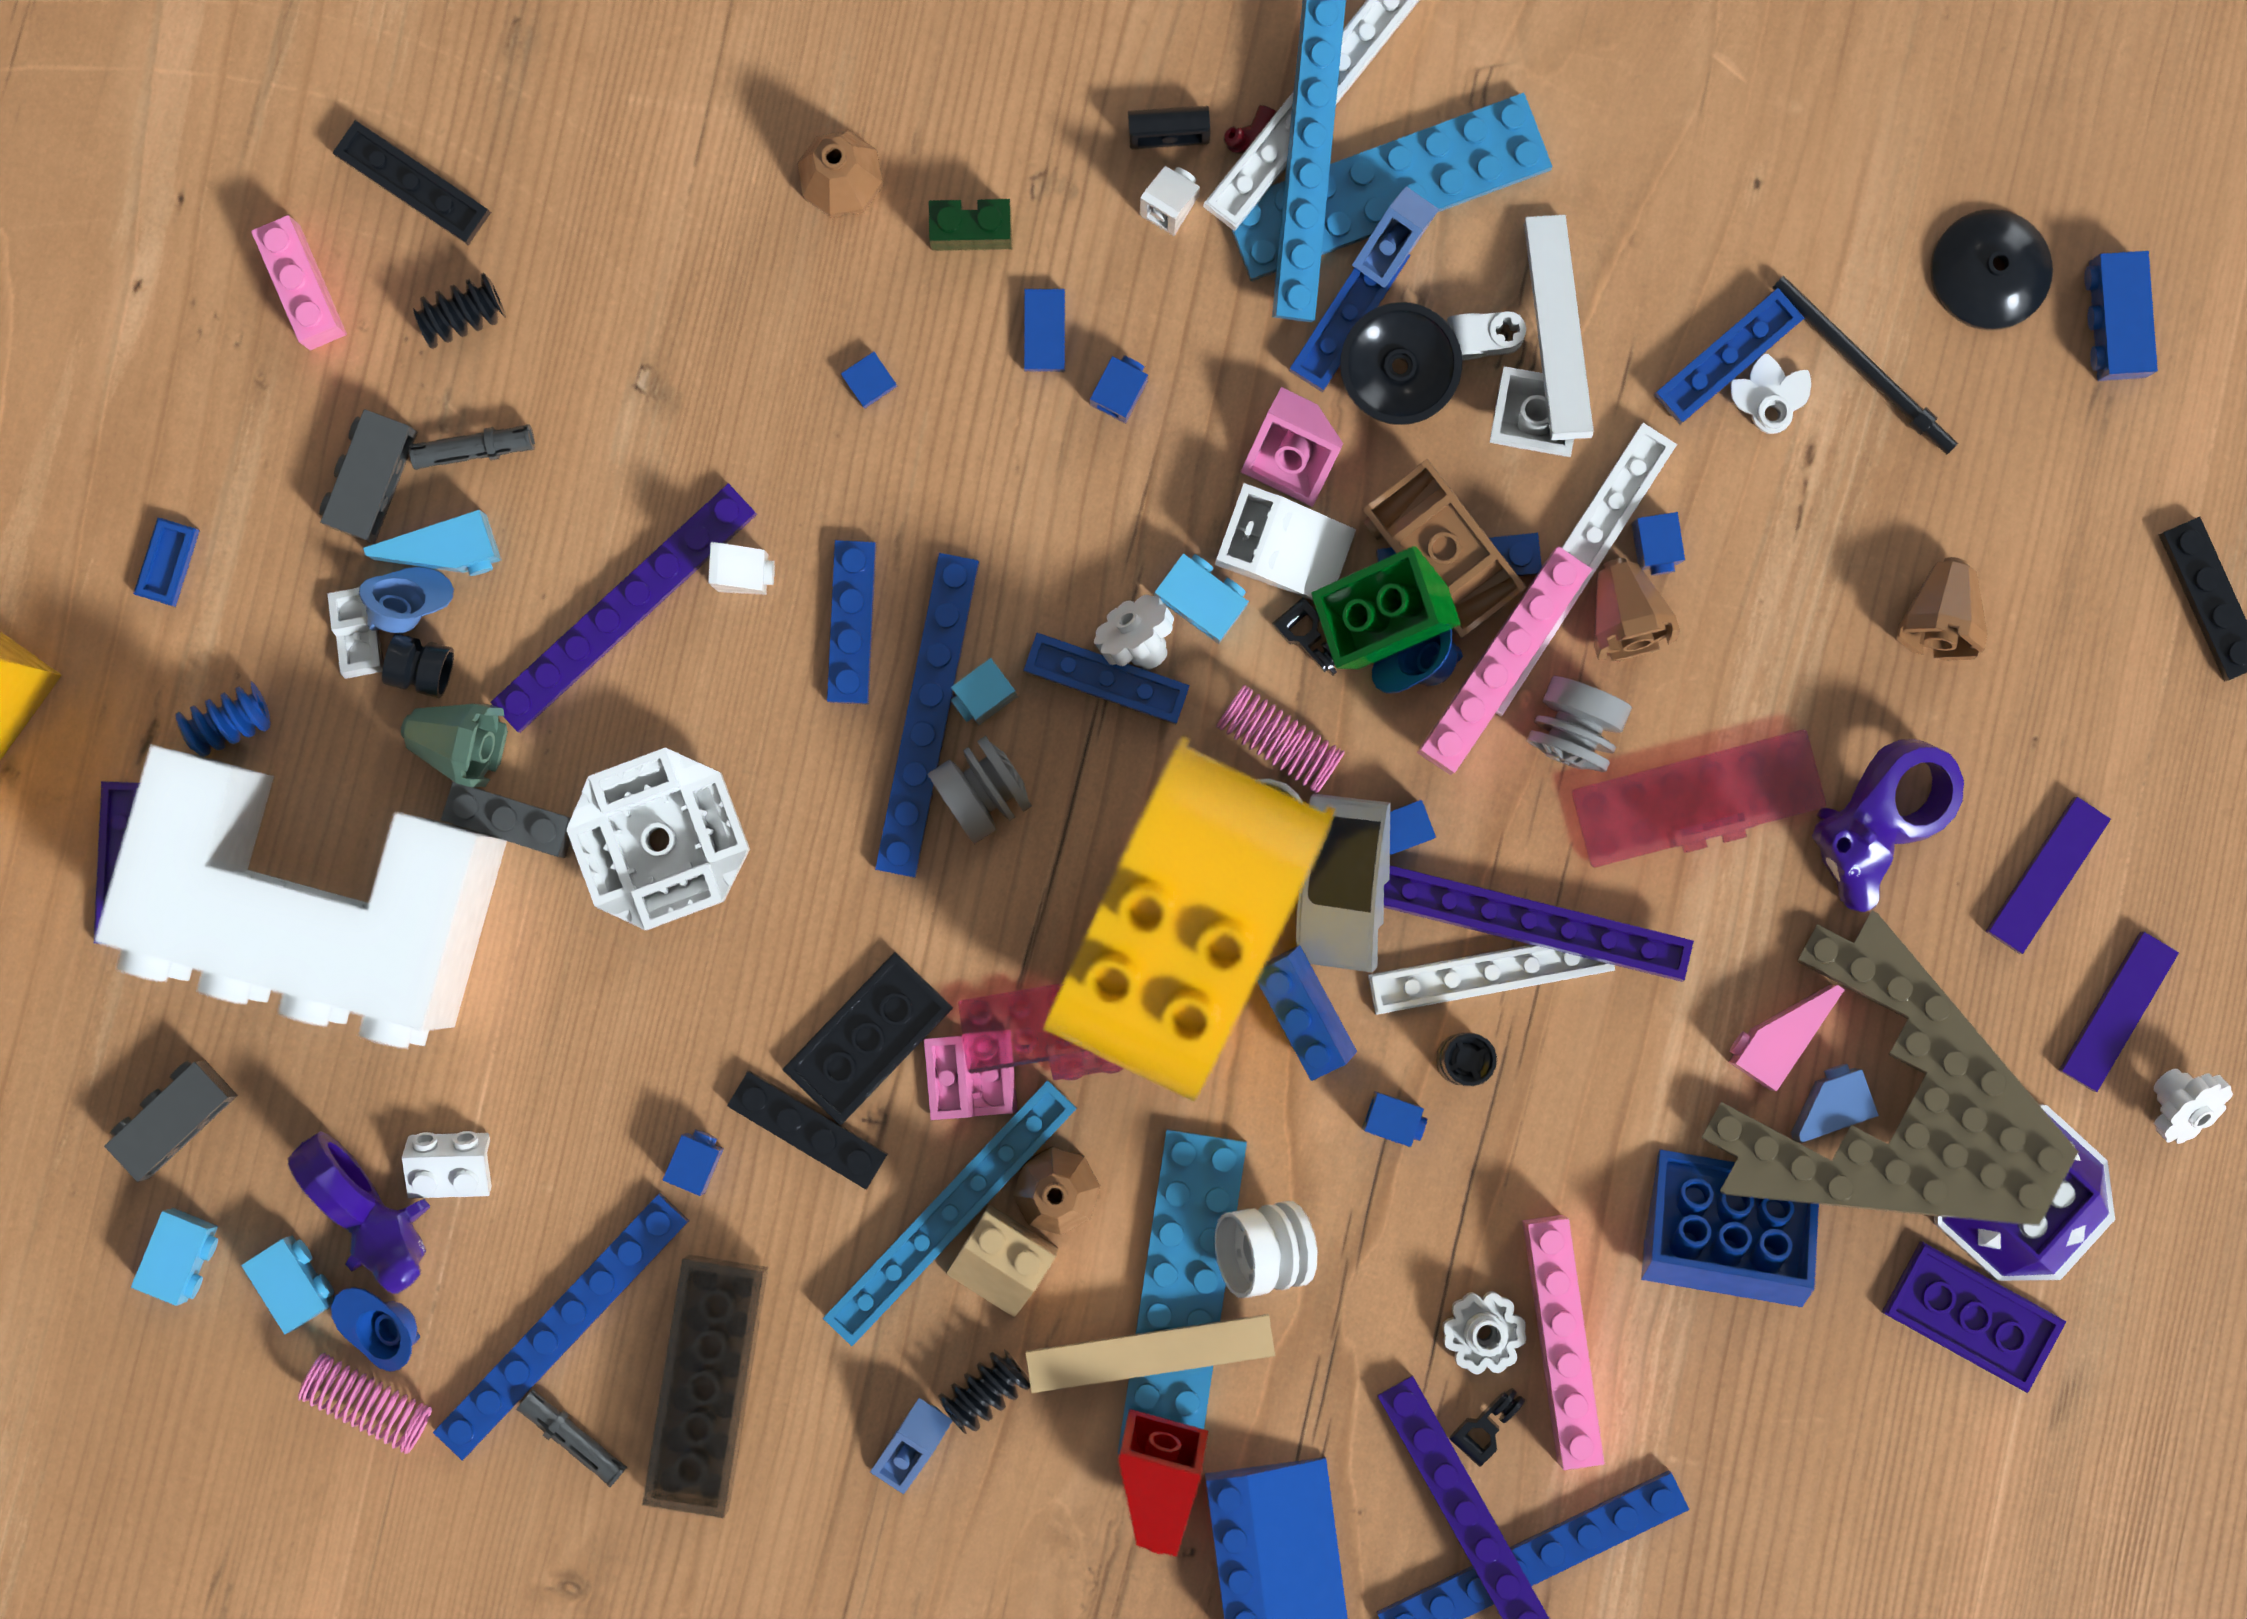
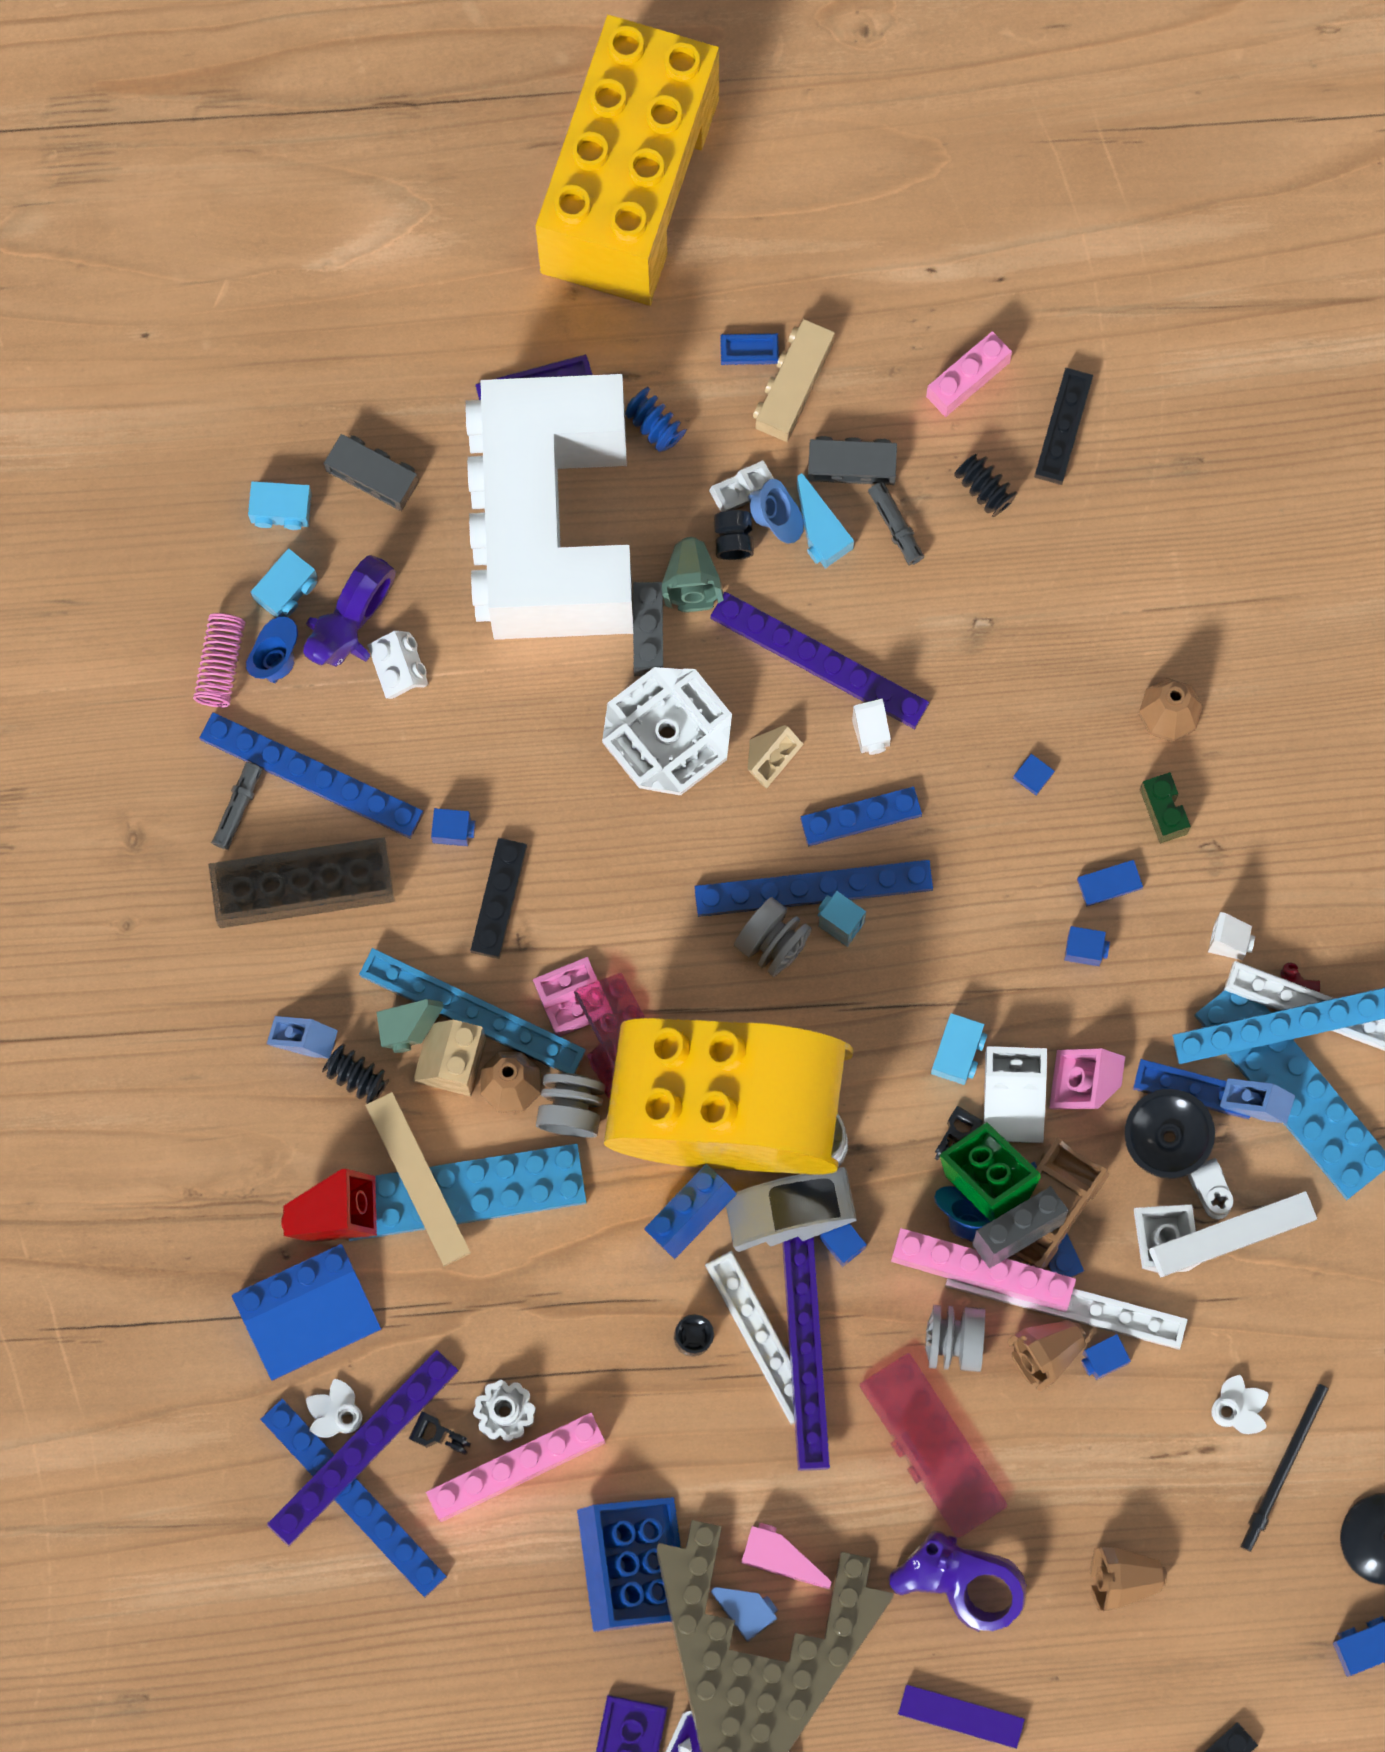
camera: 75 degrees right, 10 degrees down
(230, 516) = (794, 380): none -> tan brick
(730, 712) = (771, 753): none -> tan slope
(867, 1038) = (575, 919): black tile -> none
(941, 1305) = (407, 1024): none -> sand green slope
(1115, 683) = (880, 1002): blue plate -> none
(1118, 1124) = (571, 1099): none -> light grey wheel
(1136, 633) = (917, 1010): white plant -> none
(1169, 127) = (1281, 922): black brick -> none
(1237, 705) = (869, 1173): bright pink piece -> none
(1265, 1249) = (516, 1233): white wheel -> none
(1394, 1119) = (635, 1299): blue brick -> none
(1410, 1556) = (331, 1408): none -> white plate
(1473, 595) = (1020, 1227): none -> dark grey brick
(1728, 356) = (1256, 1366): blue plate -> none

